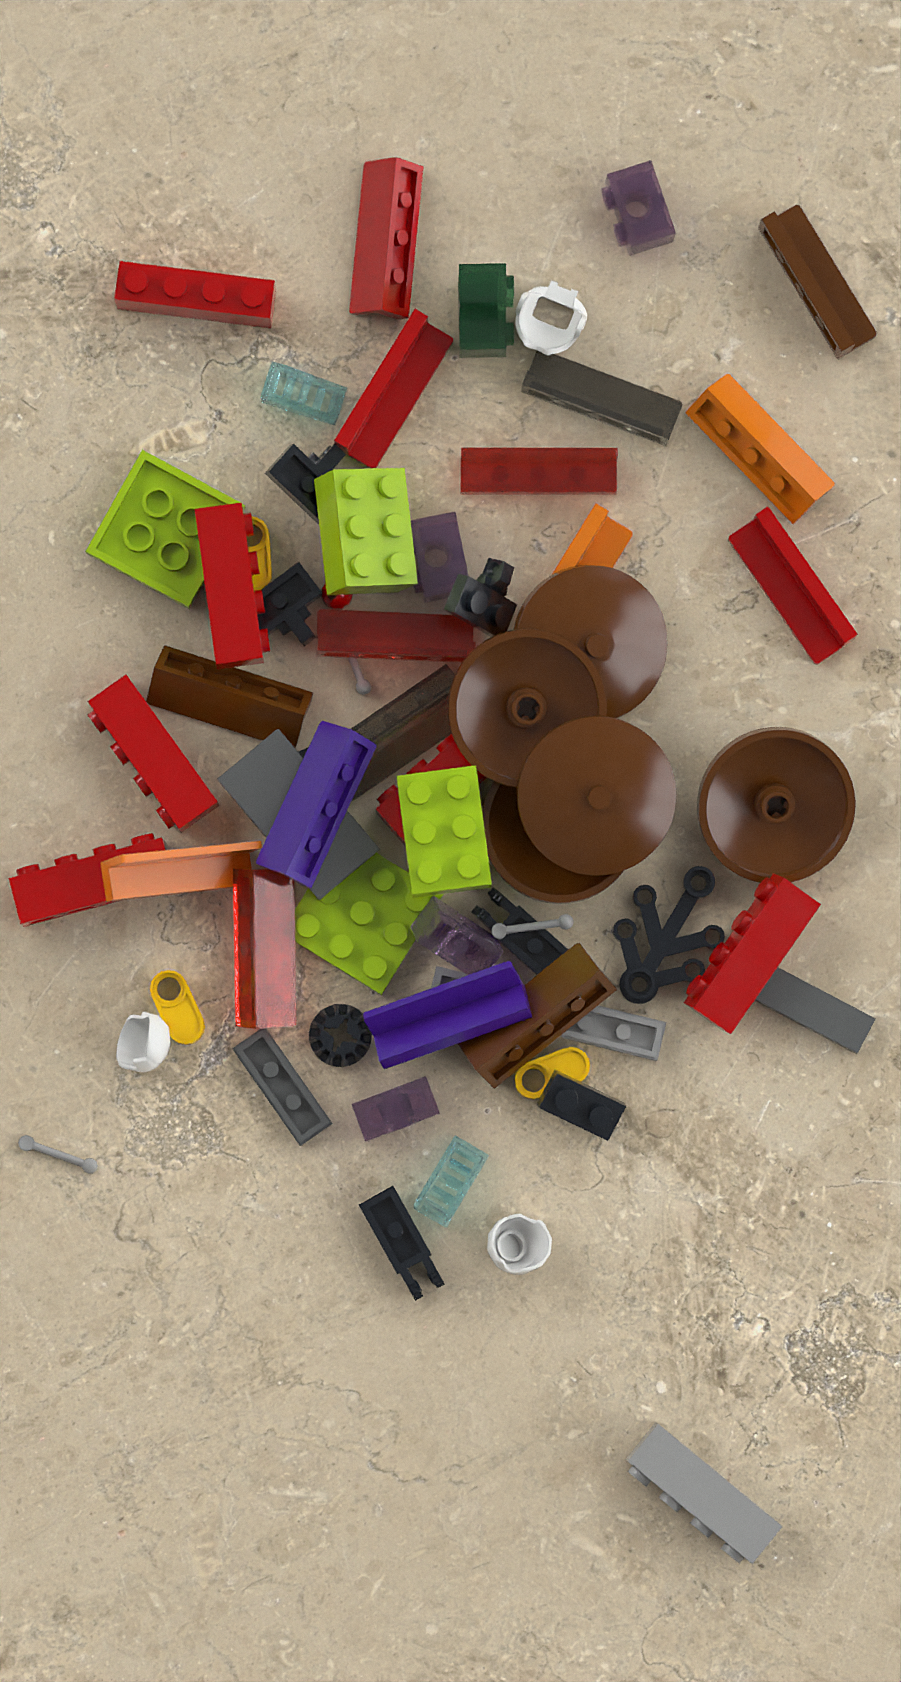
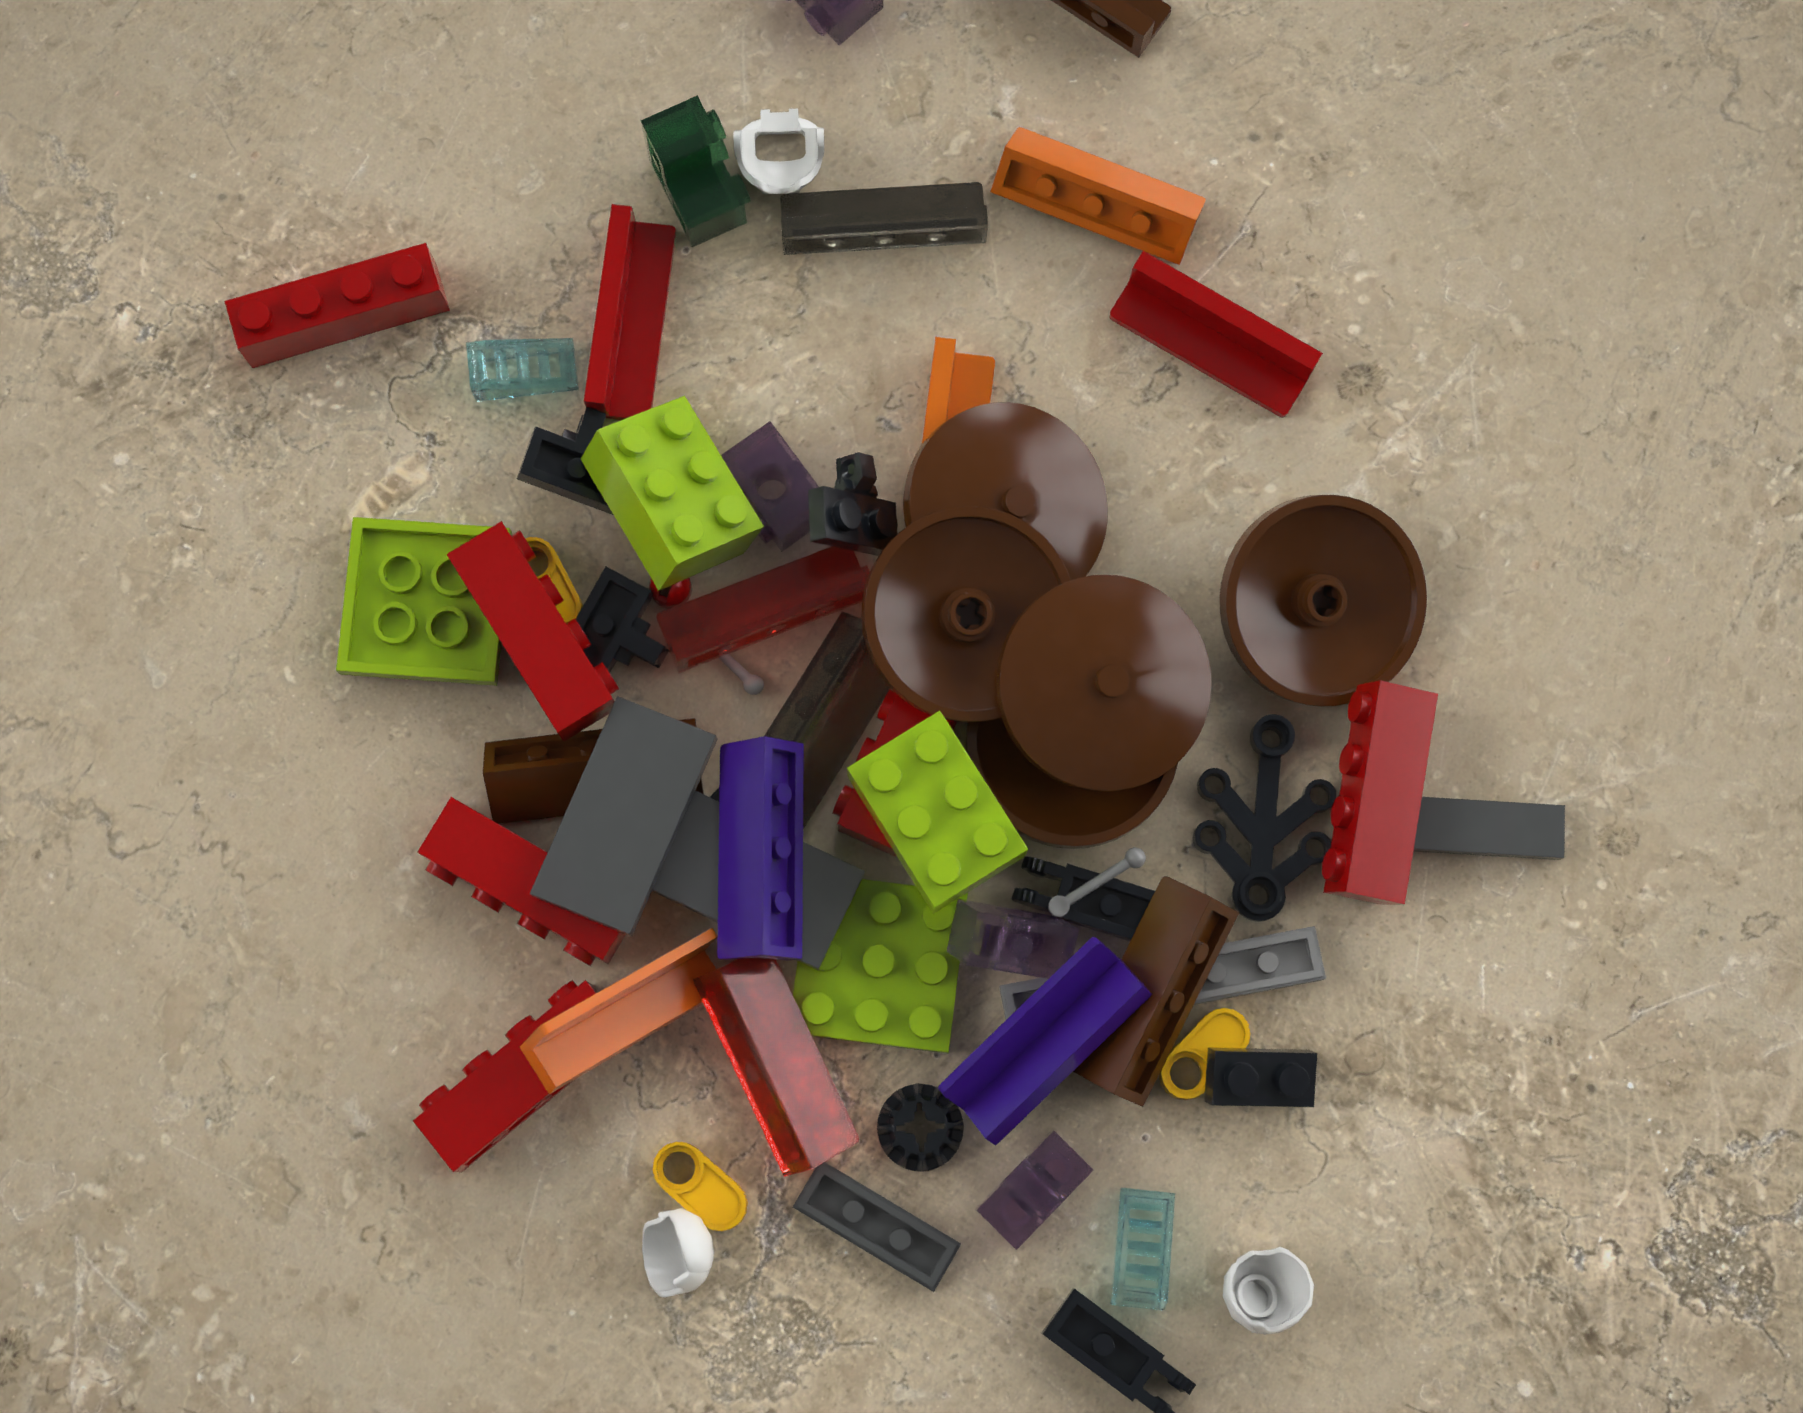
camera: 20 degrees left, 5 degrees down
(235, 739) = (624, 816): none -> dark grey tile
(386, 238) = (541, 143): red panel -> none
(538, 471) = (847, 332): clear red panel -> none

